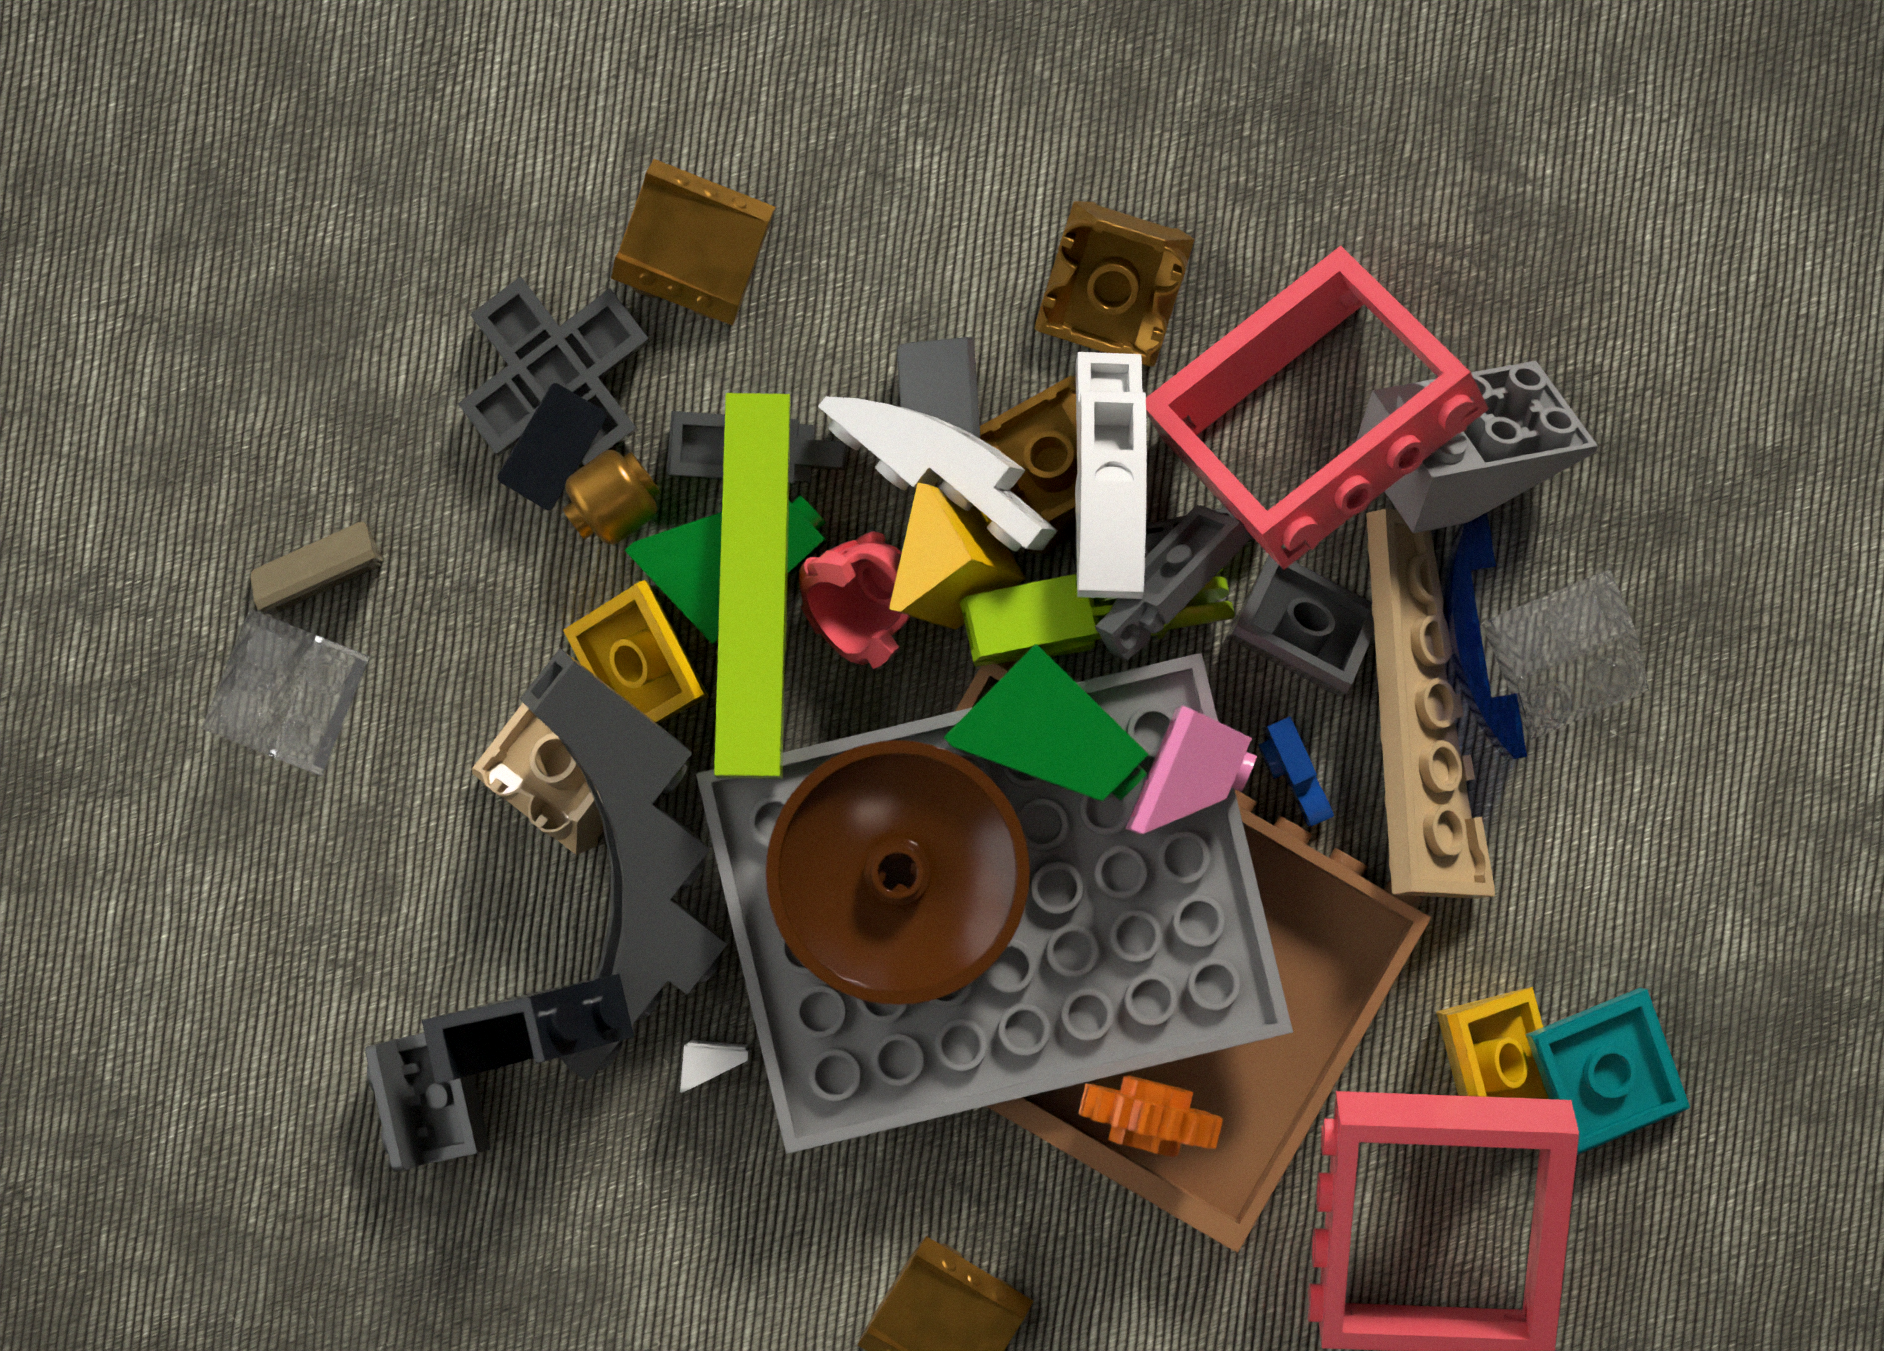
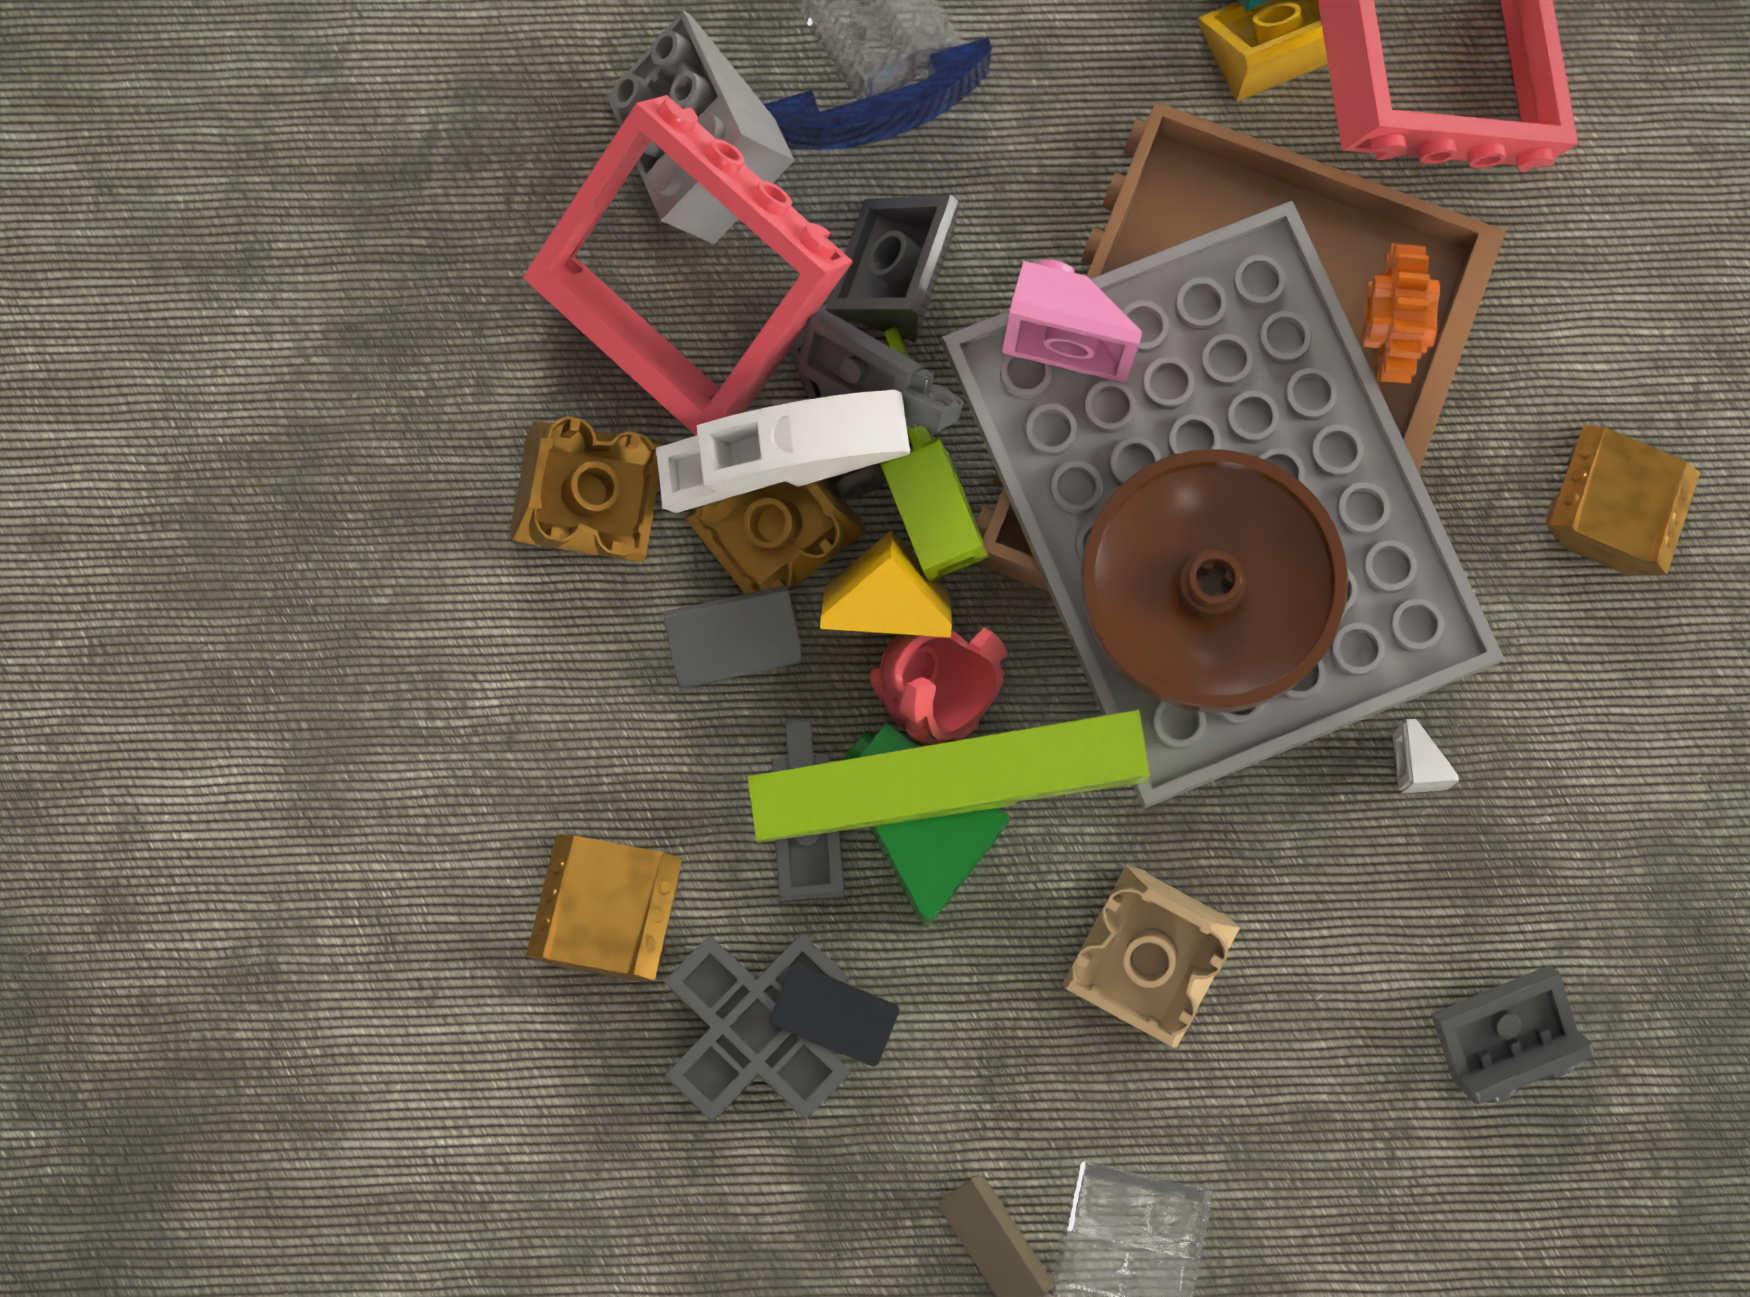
camera: 100 degrees left, 10 degrees down
(528, 1027) = (1409, 887): black panel -> none
(610, 497) = (876, 946): pearl gold head -> none
(638, 653) = (1036, 896): yellow slope -> none
(650, 853) = (1235, 845): dark grey arch -> none
(925, 448) = (778, 642): white slope -> none
(1050, 731) = (1045, 460): green slope -> none
(1287, 756) = (1035, 244): blue plate -> none
(1431, 830) = (1077, 112): tan wing -> none

